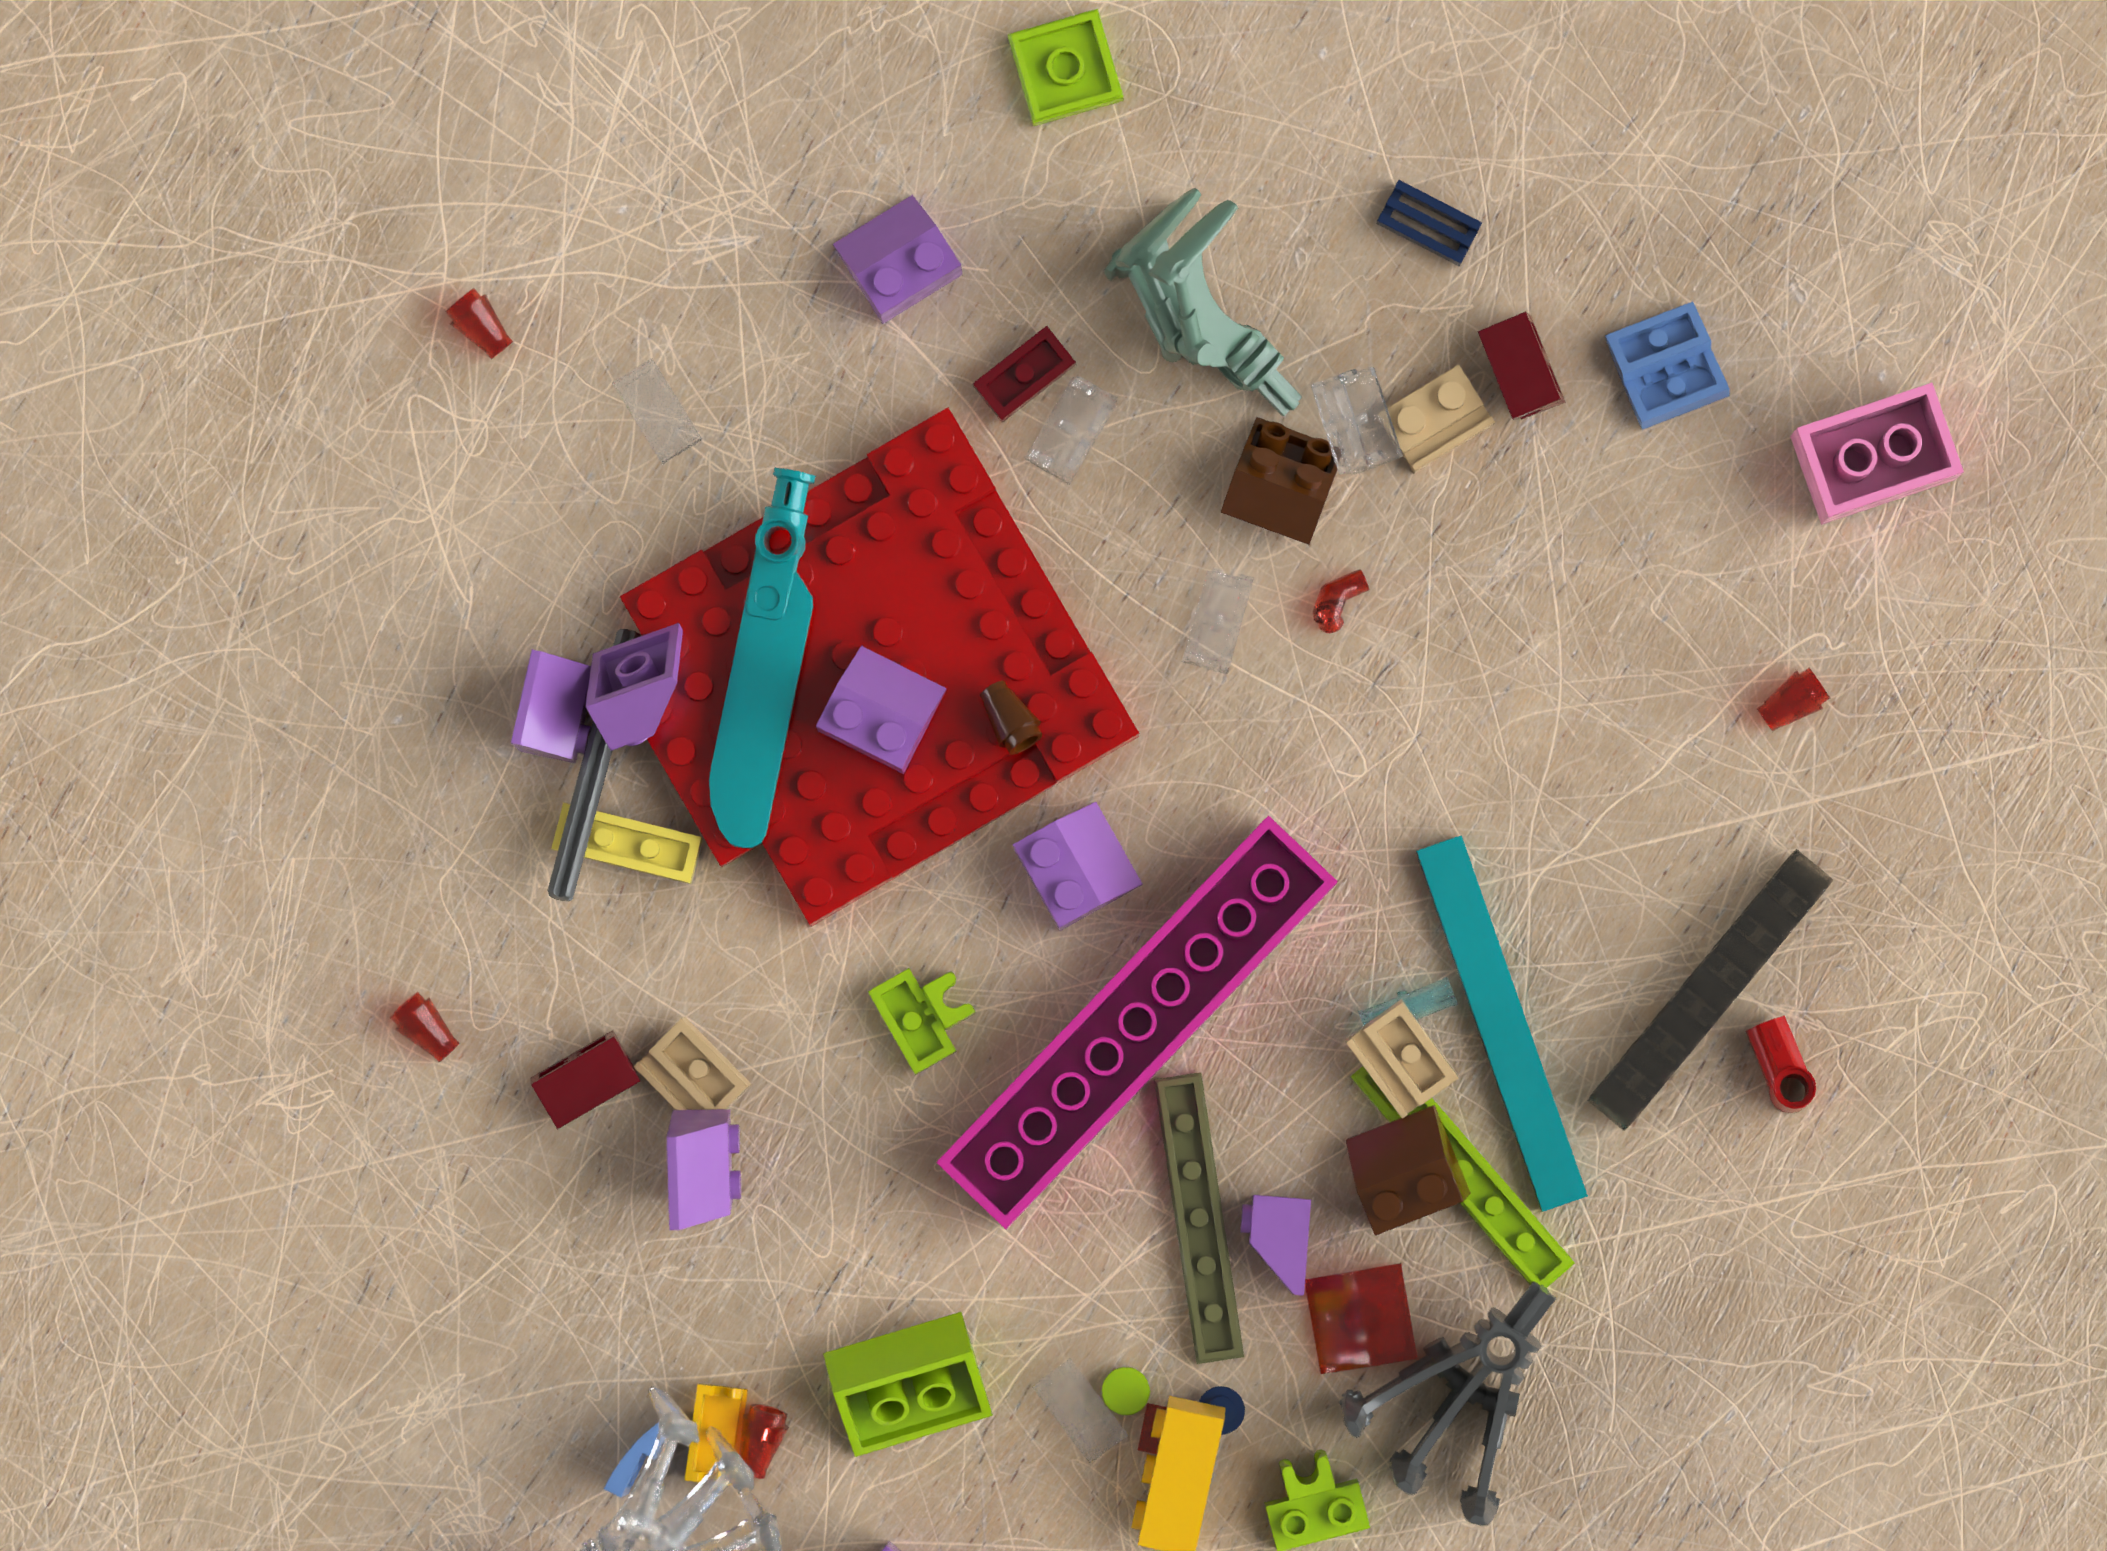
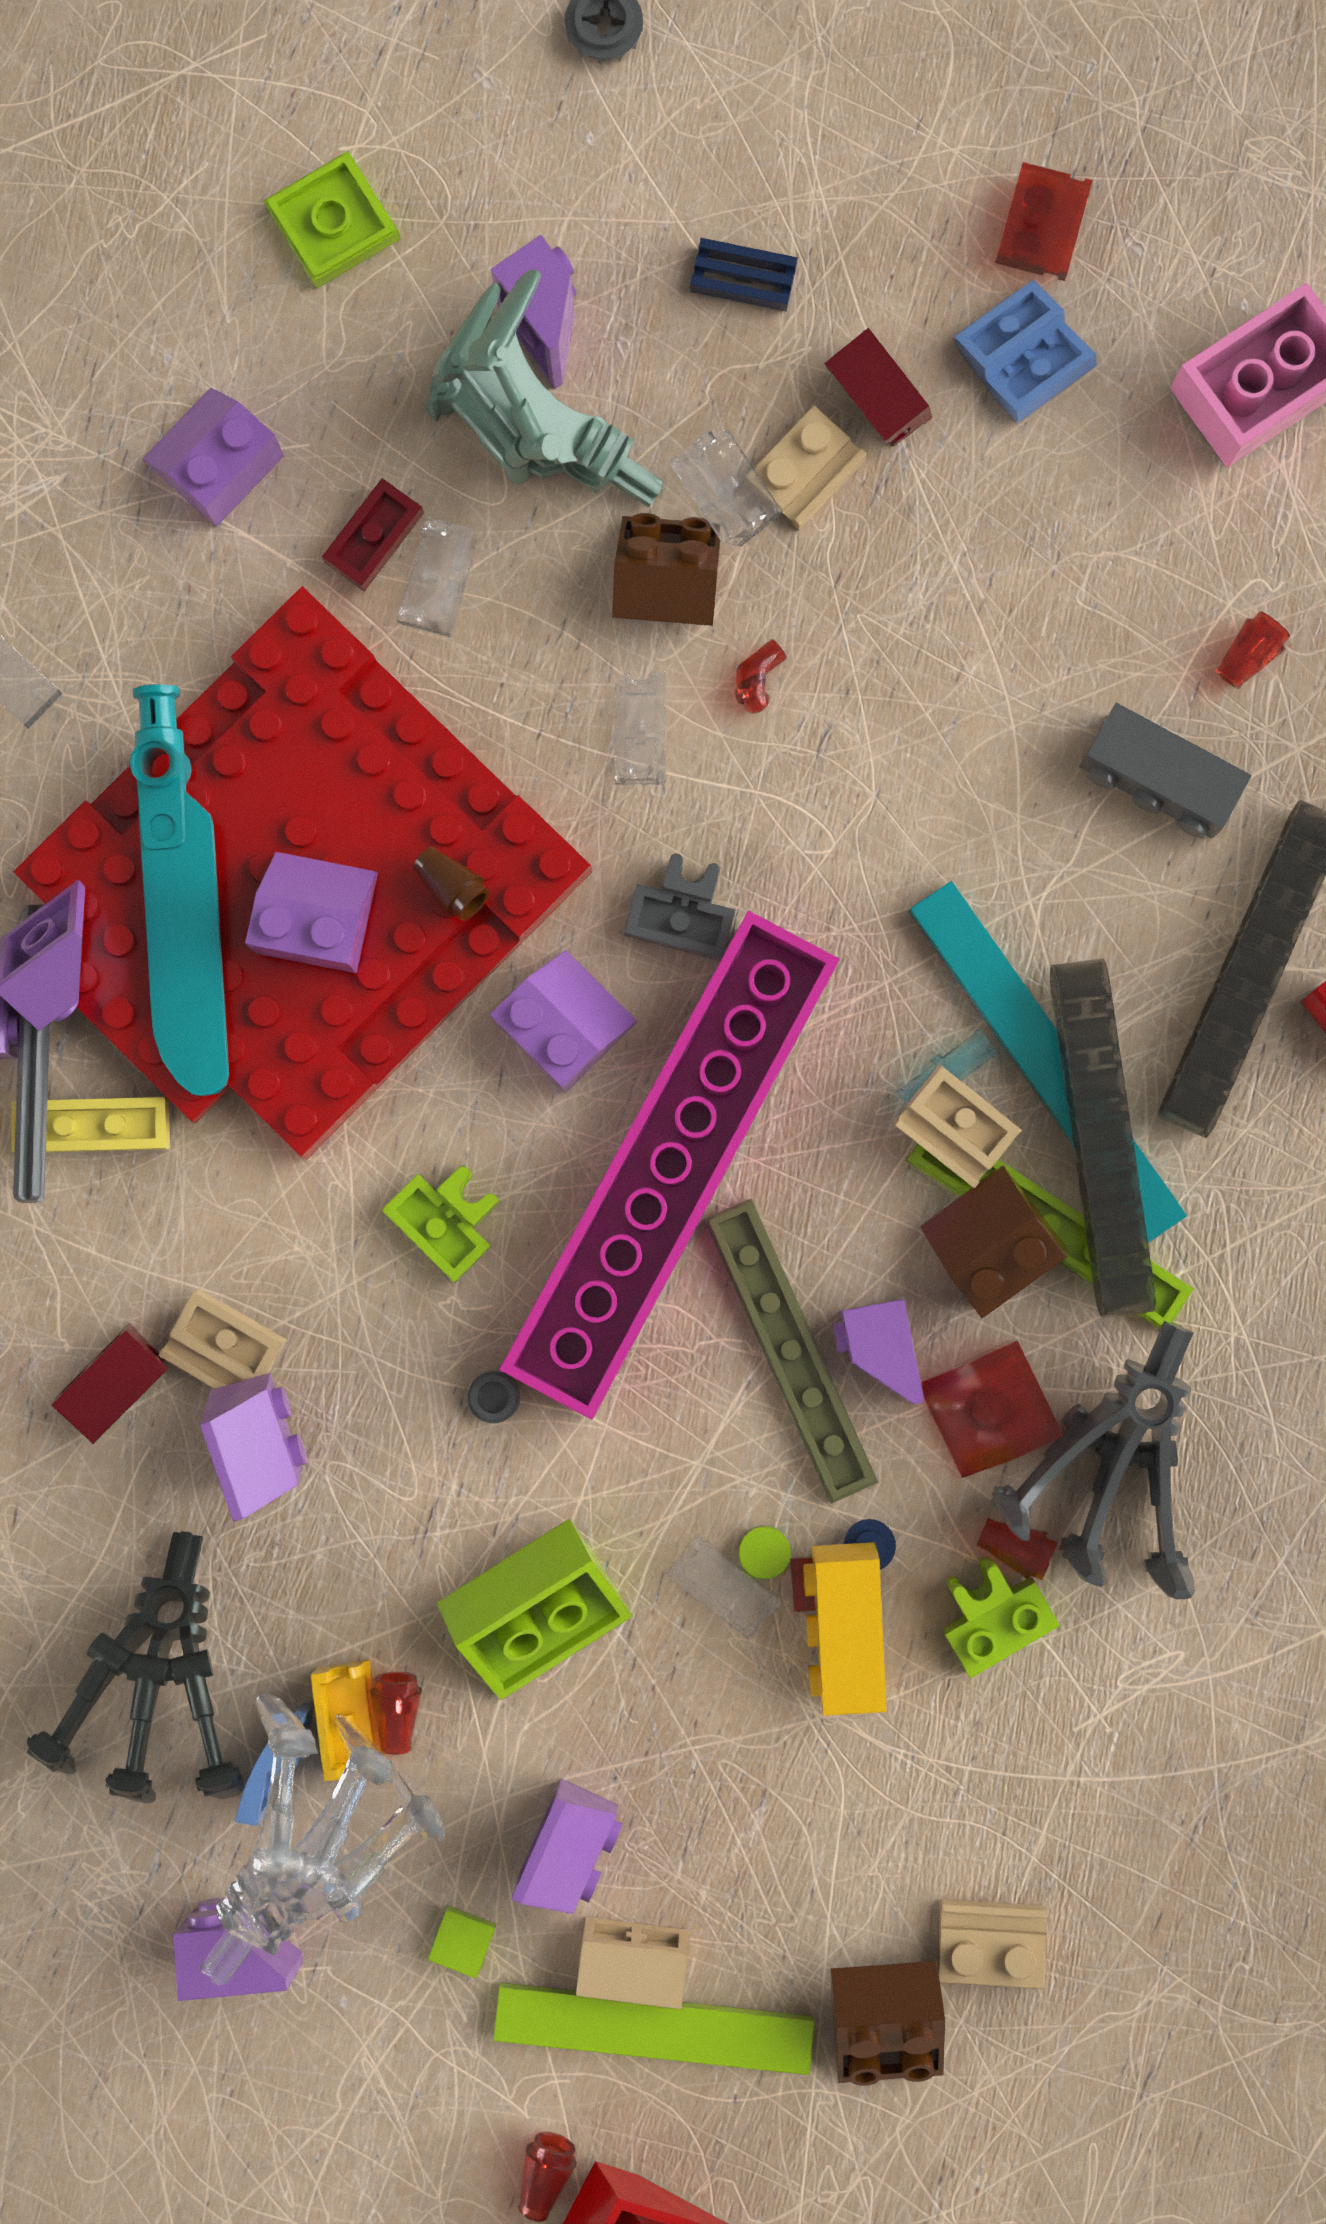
camera: 15 degrees left, 0 degrees up
(518, 1433) = (149, 1672): none -> pearl dark grey piece
(921, 1186) = (493, 1397): none -> dark grey tile
(1209, 798) = (682, 913): none -> dark grey plate
(1250, 191) = (550, 315): none -> medium lavender slope
(1358, 1456) = (1024, 1557): none -> clear red cone
(1528, 1104) = (1102, 1138): none -> clear smoke beam
(1680, 790) = (1164, 772): none -> dark grey brick
(1717, 250) = (1043, 221): none -> clear red plate

